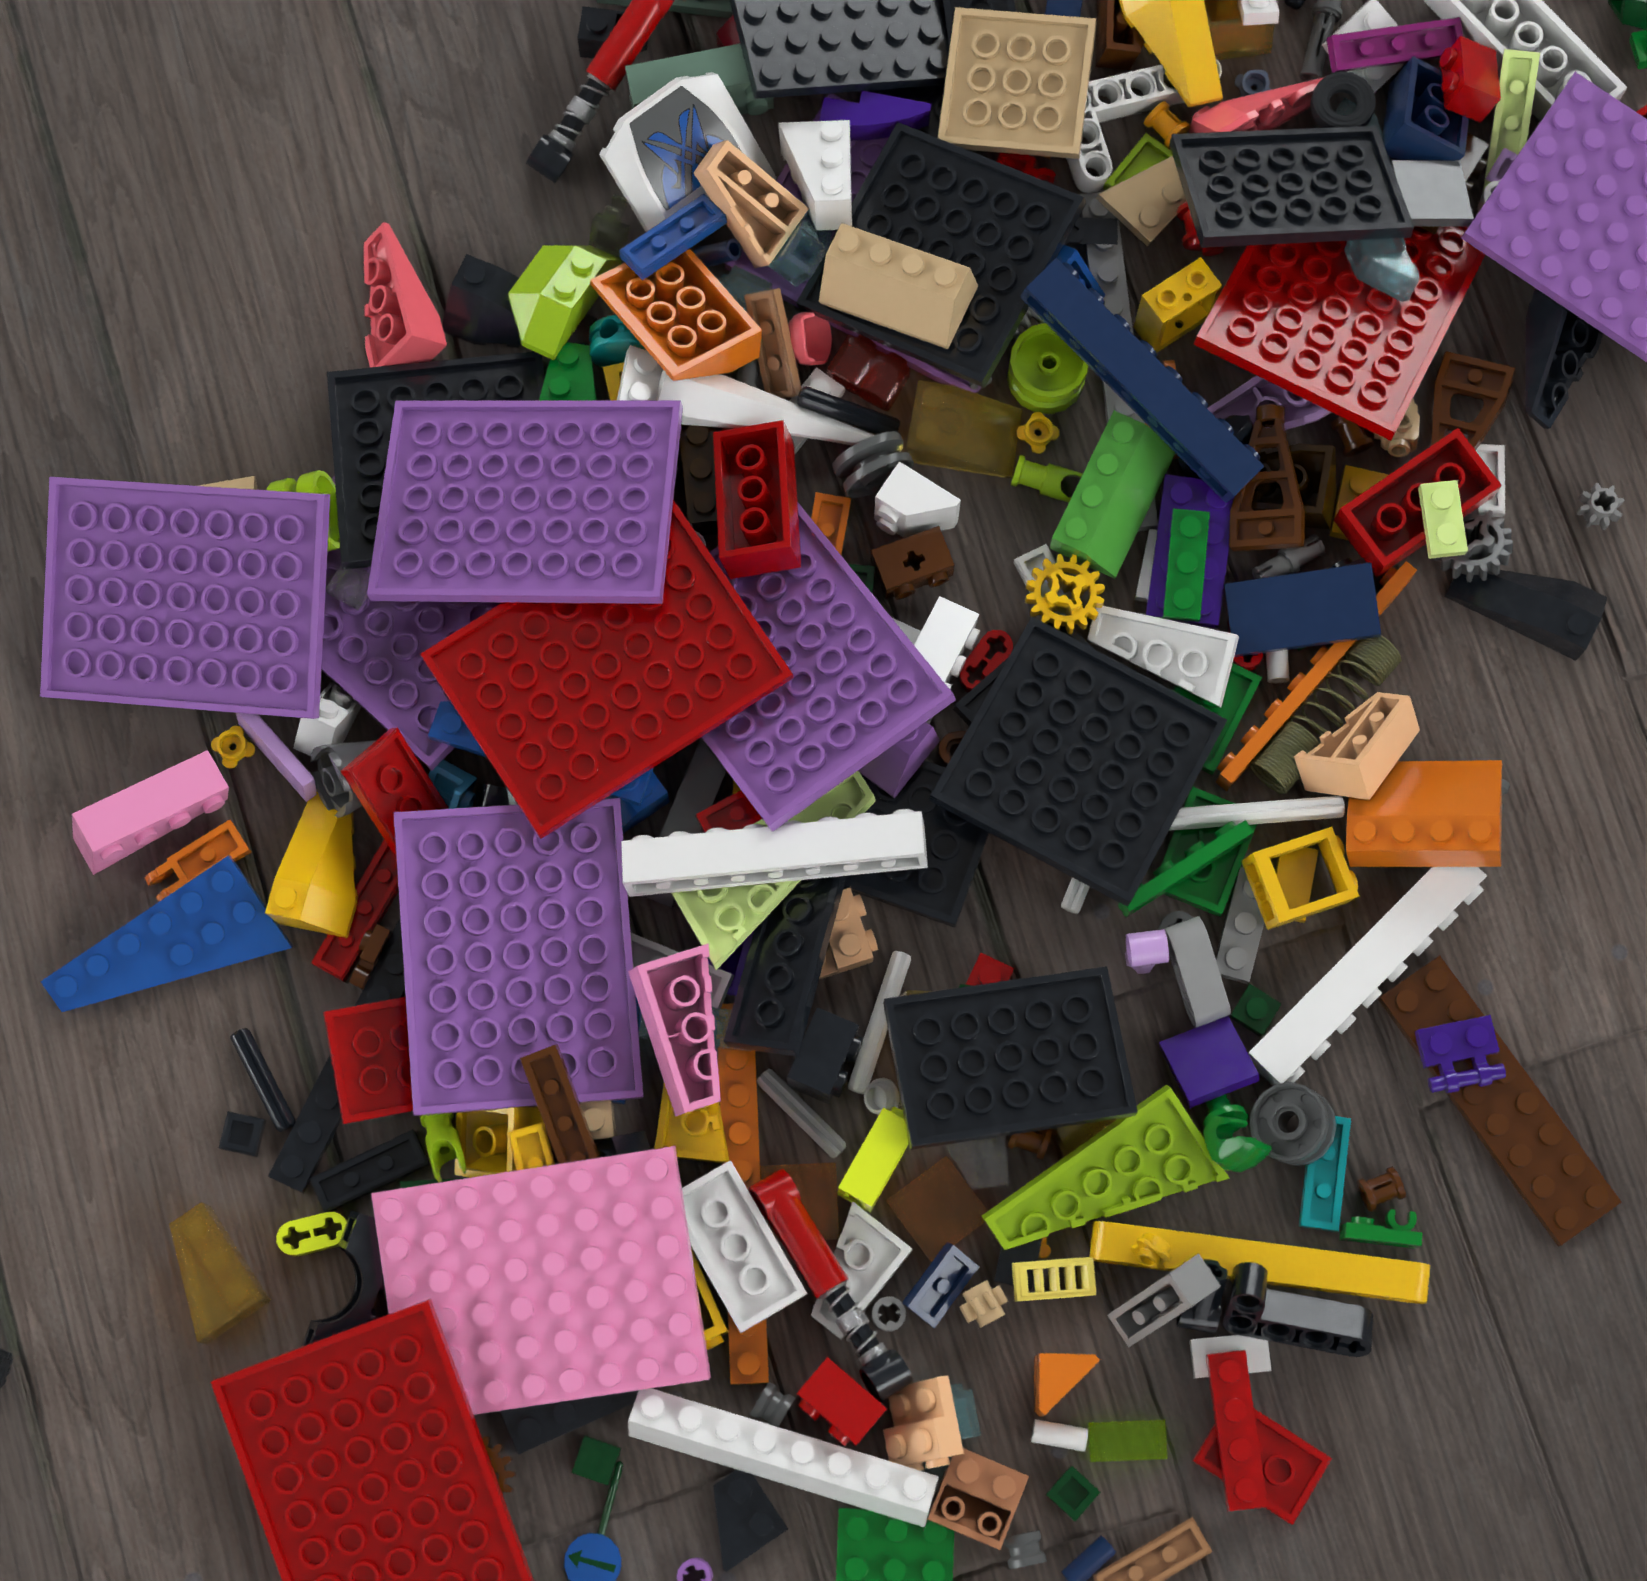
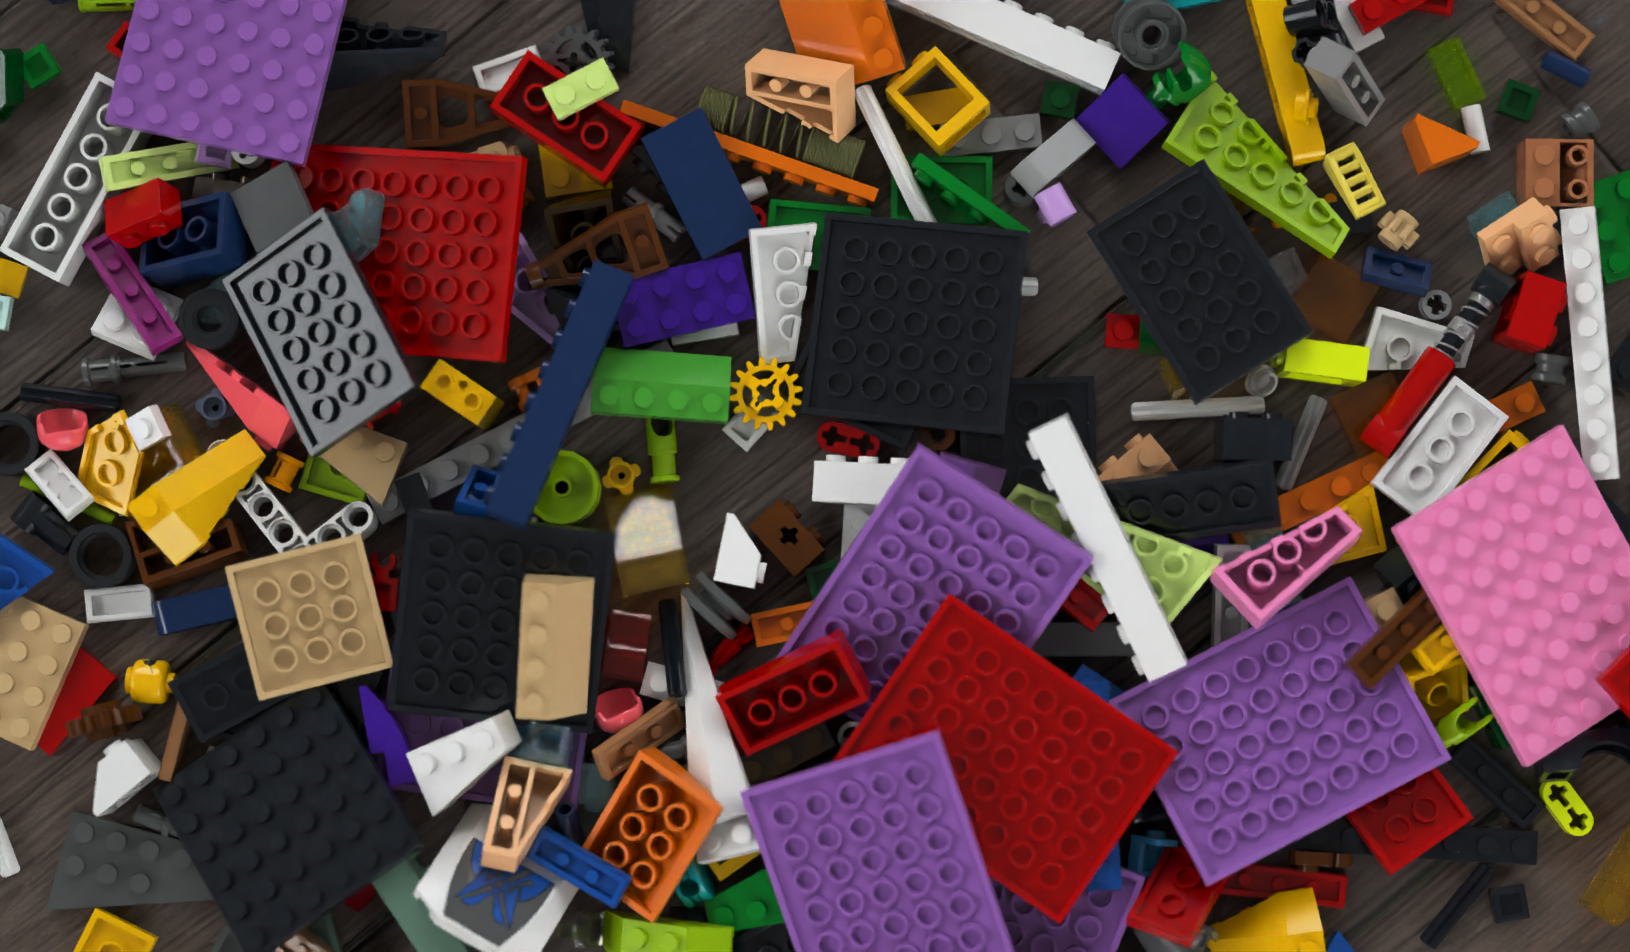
camera: 110 degrees left, 10 degrees up
(822, 463) = (729, 648): none -> red axle
(1186, 565) = (701, 297): green plate -> none

